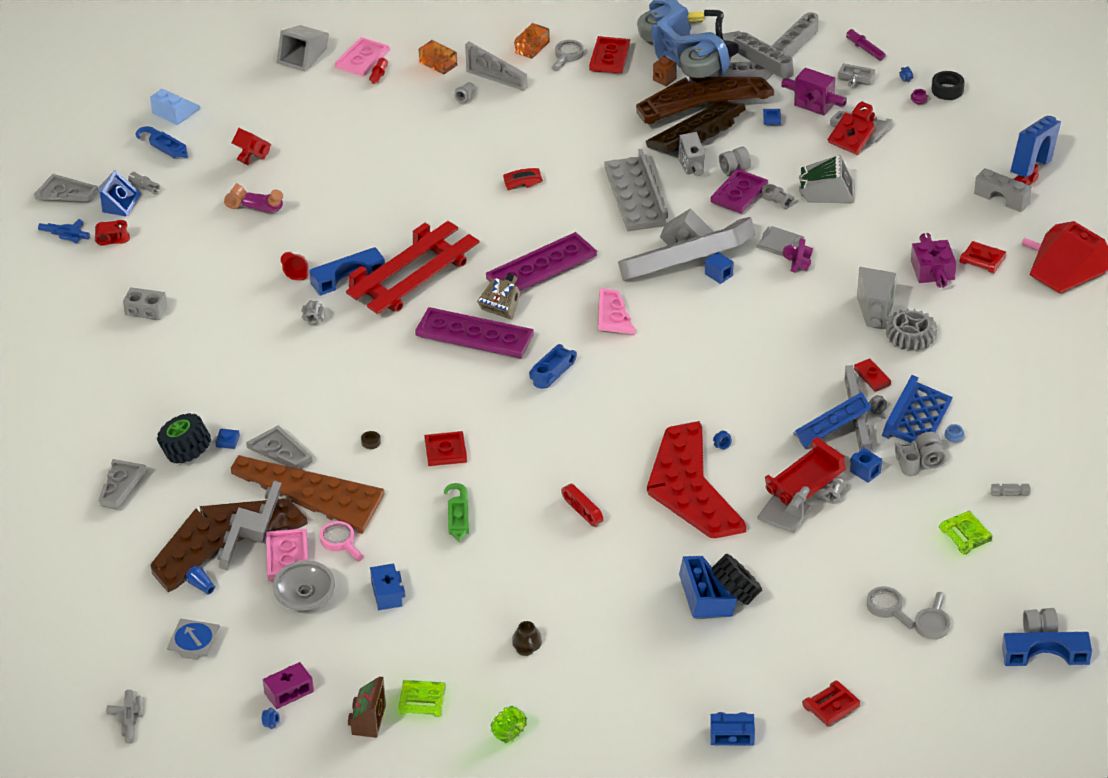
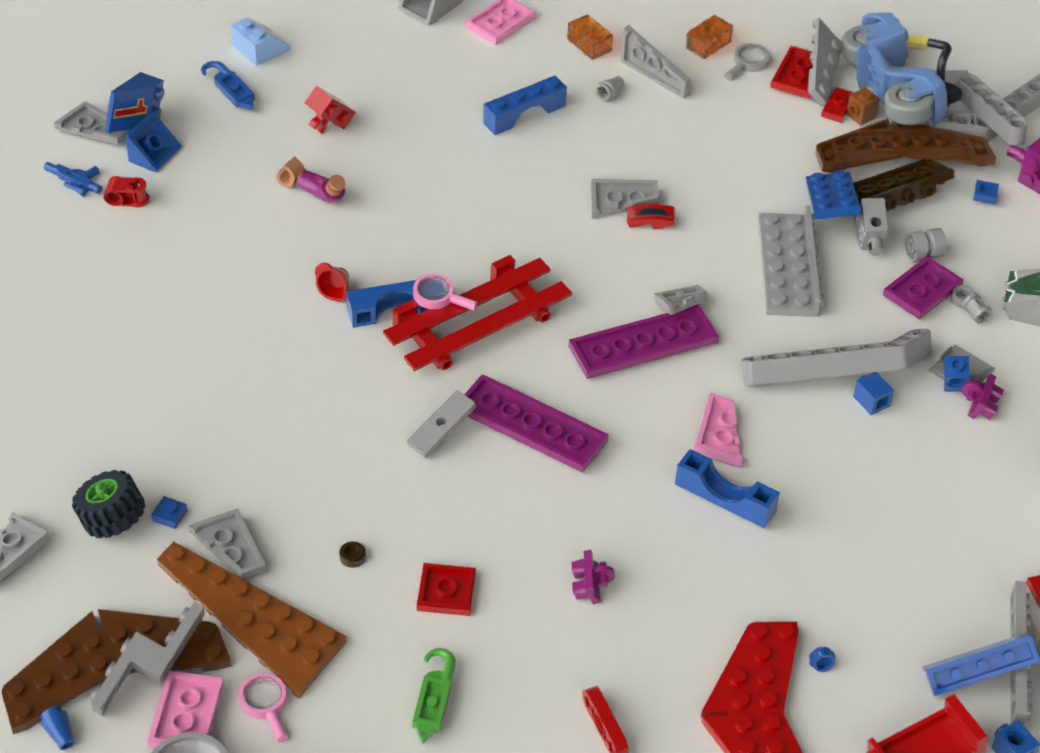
camera: 10 degrees right, 5 degrees up
(97, 165) = (134, 102): none -> blue slope
(144, 182) = (189, 133): light grey pin -> none
(145, 303) = (132, 296): light grey brick -> none
(312, 312) = (334, 351): light grey gear -> none
(378, 70) = (514, 41): red axle -> none
(379, 256) = (437, 291): none -> piece
(387, 123) = (503, 112): none -> blue arch
(409, 344) = (449, 415): none -> light grey tile
(494, 167) = (616, 195): none -> light grey wing
(501, 297) = (578, 379): dark tan torso -> none
(552, 366) = (619, 494): blue piece -> none
(555, 417) = (595, 576): none -> magenta hips
(561, 230) = (680, 299): none -> light grey wing
(608, 344) = (699, 476): none -> blue arch
(627, 42) = (824, 61): none -> light grey wing
(644, 74) = (837, 105): none -> red plate
(656, 137) = (832, 195): none -> blue plate
(684, 227) = (839, 329): light grey brick -> none
(775, 242) = (955, 372): none -> blue brick

